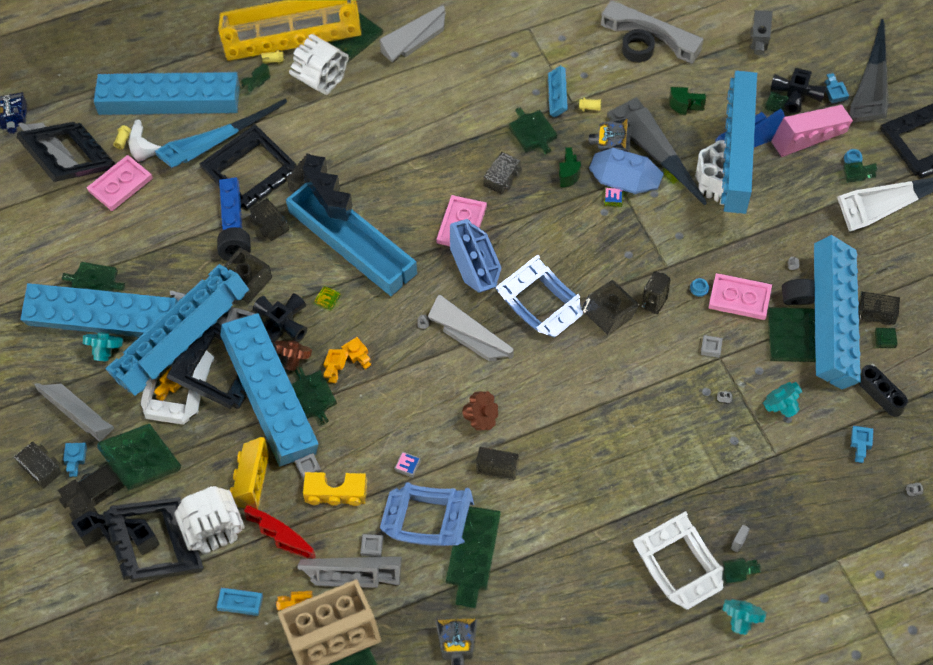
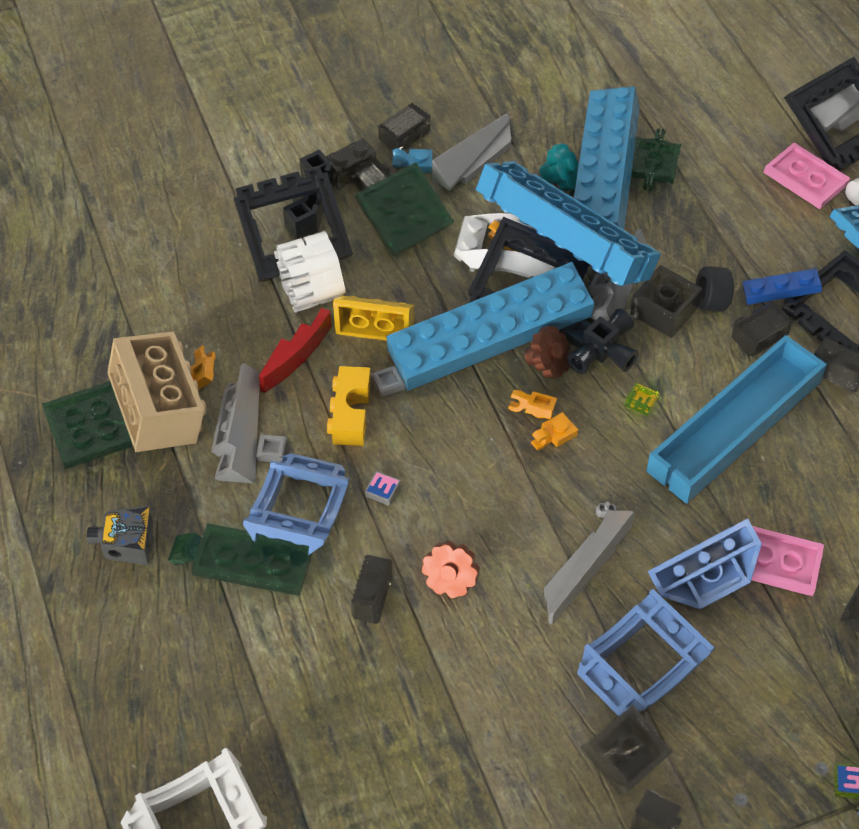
camera: 90 degrees right, 5 degrees down
(239, 601) = (212, 315): dark azure plate -> none
(313, 394) = (489, 381): clear green plate -> none
(326, 188) = (800, 369): black brick -> none

